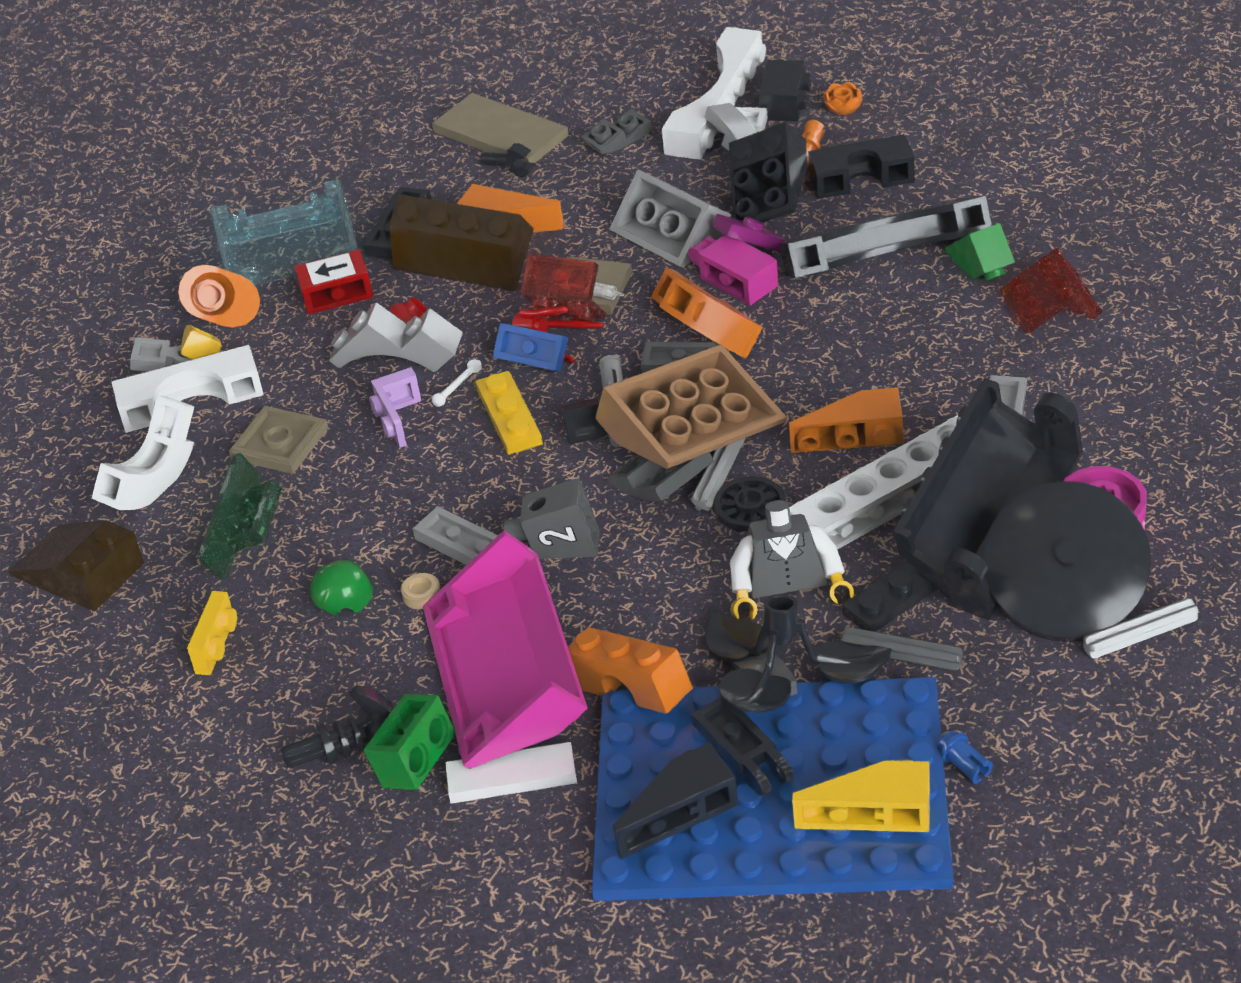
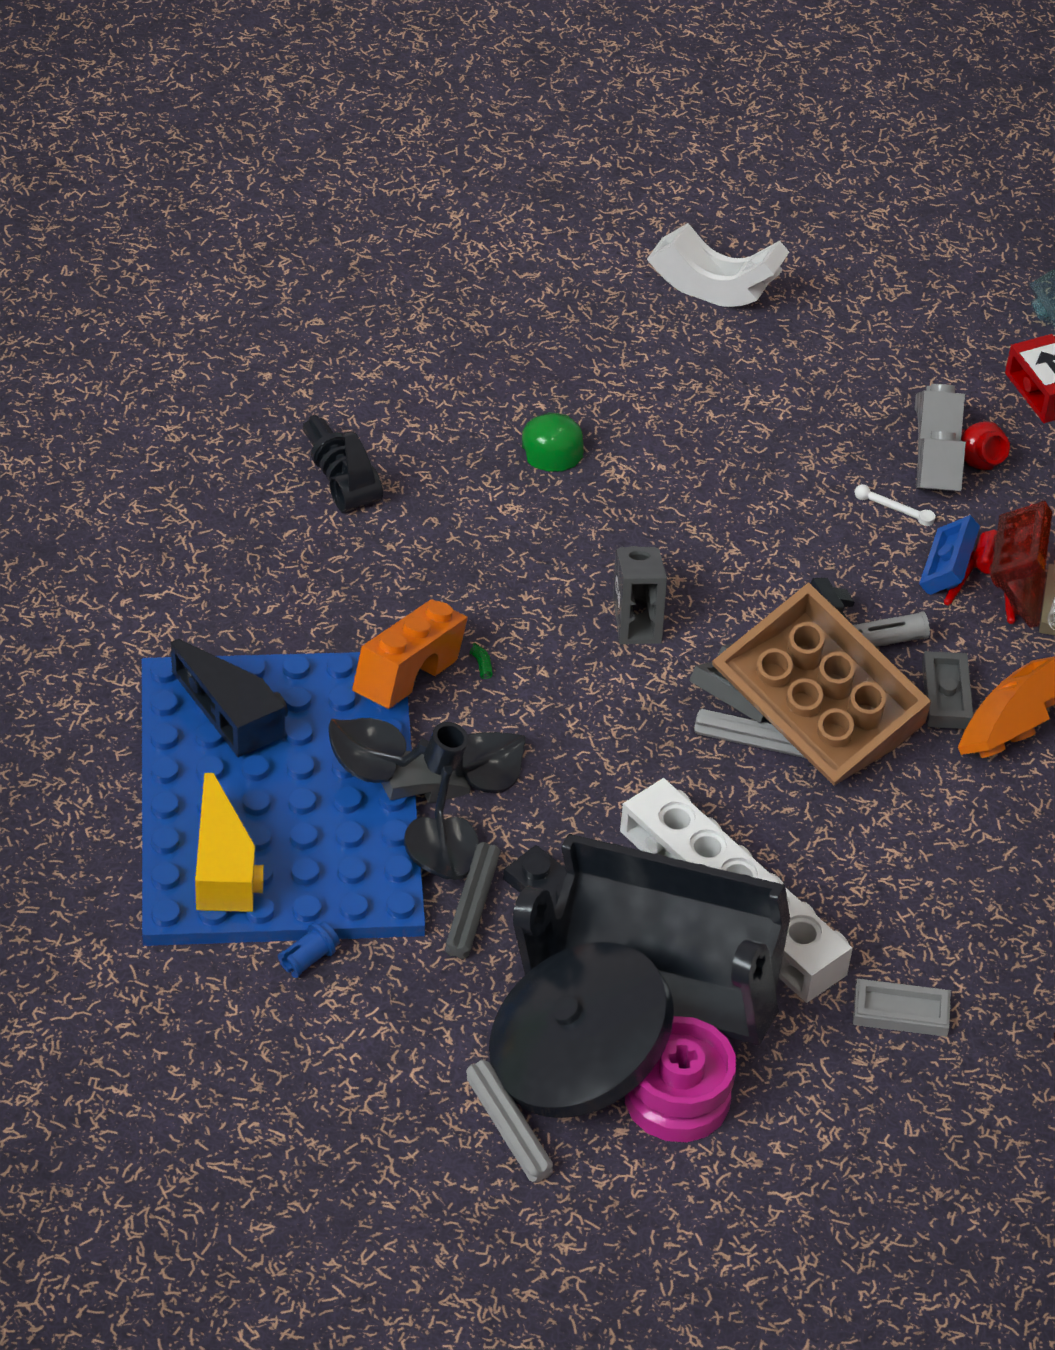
camera: 75 degrees right, 5 degrees up
(82, 562) = (578, 250): dark brown slope -> none
(154, 354) = (905, 255): light grey plate -> none
(198, 343) = (925, 286): yellow slope -> none
(209, 637) = (479, 352): yellow plate -> none
(219, 296) = (1000, 284): orange piece -> none
(224, 375) = (830, 257): white arch -> none
(239, 517) = (651, 348): clear green bracket -> none
(279, 439) = (783, 371): dark tan tile -> none
(393, 393) = (843, 439): lavender bracket -> none
(410, 741) = (322, 494): green brick -> none
(419, 589) = (555, 505): tan tile -> none
(452, 535) = (621, 526): light grey plate -> none
(502, 654) = (443, 561): dark pink slope -> none
(508, 412) = (844, 550): yellow plate -> none
(512, 773) = (300, 593): white tile -> none
(741, 744) = (297, 752): black hinge -> none
(747, 502) = (705, 766): black wheel -> none
(783, 558) = (588, 778): torso -> none
(852, 422) = (845, 855): orange slope -> none

